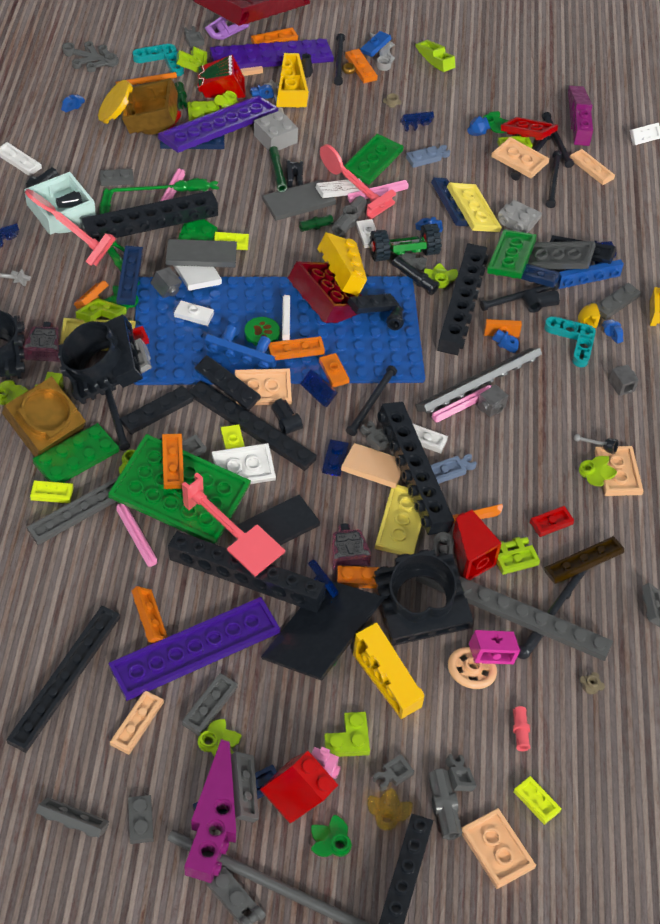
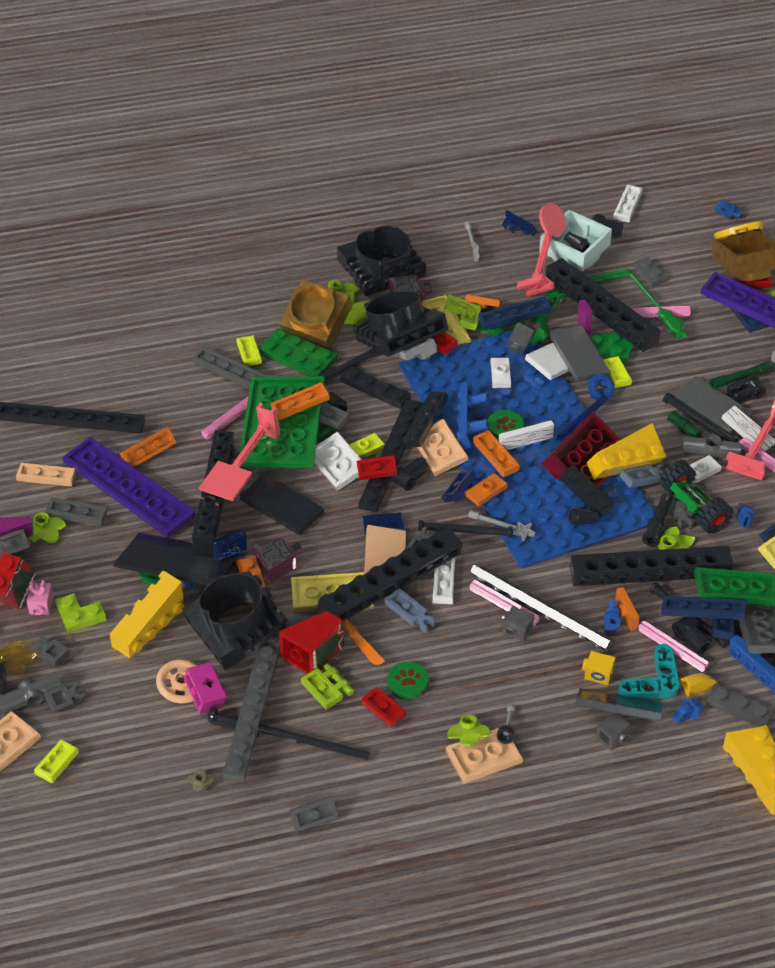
camera: 75 degrees right, 5 degrees down
(159, 264) = (541, 333): none -> green plate
(163, 232) = (584, 316): none -> magenta tile
(248, 256) = (603, 381): none -> blue gear
(278, 279) = (595, 406): none -> clear blue bar
(278, 435) = (376, 468): none -> red plate
(279, 221) = (668, 398): none -> black bar
(370, 270) = (642, 475): none -> sand blue plate
(390, 361) = (519, 530): none -> light grey piece
(521, 728) = (128, 733): coral pin -> none
(524, 496) = (407, 680): none -> green tile
(530, 278) = (704, 607): none -> dark blue plate
(541, 317) = (678, 649): none -> bright pink axle
(558, 366) = (598, 667): none -> yellow brick
(584, 560) = (344, 742): dark brown tile -> none
(602, 365) = (619, 704): none -> black tile

